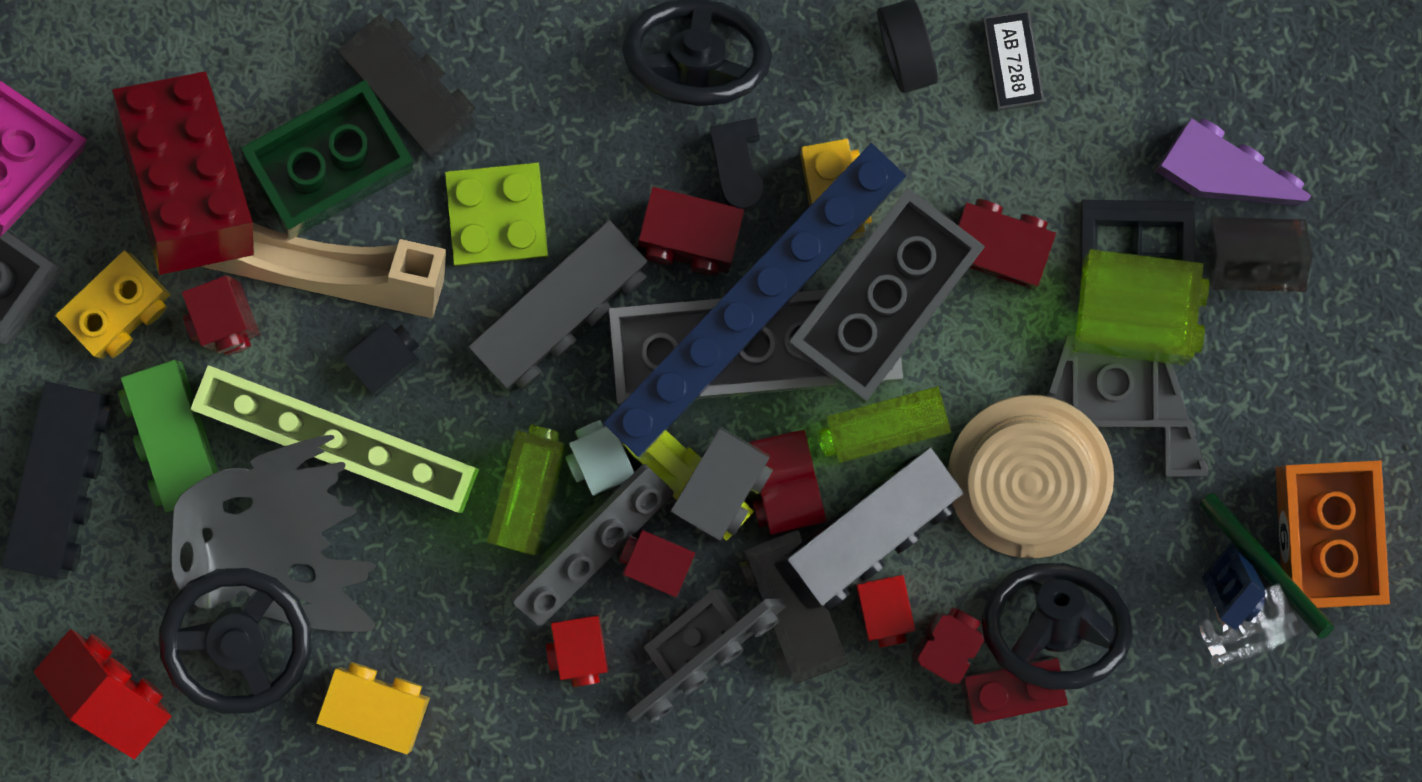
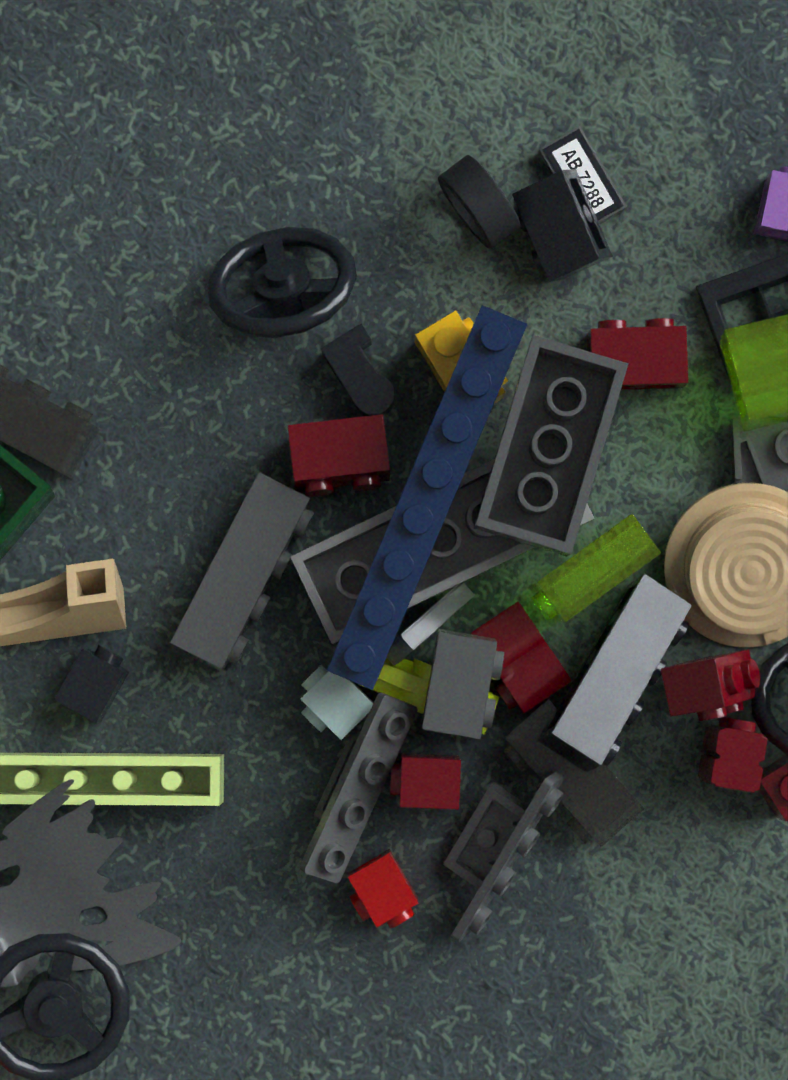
camera: 20 degrees left, 0 degrees up
(373, 708) = (209, 1020): yellow brick -> none
(496, 214) = (149, 506): lime plate -> none
(528, 490) = (278, 759): clear neon green brick -> none
(714, 418) = (429, 623): none -> dark grey tile
(885, 610) = (659, 743): red brick -> none
(953, 572) = (711, 684): none -> dark red brick
(976, 96) = (561, 225): none -> black brick

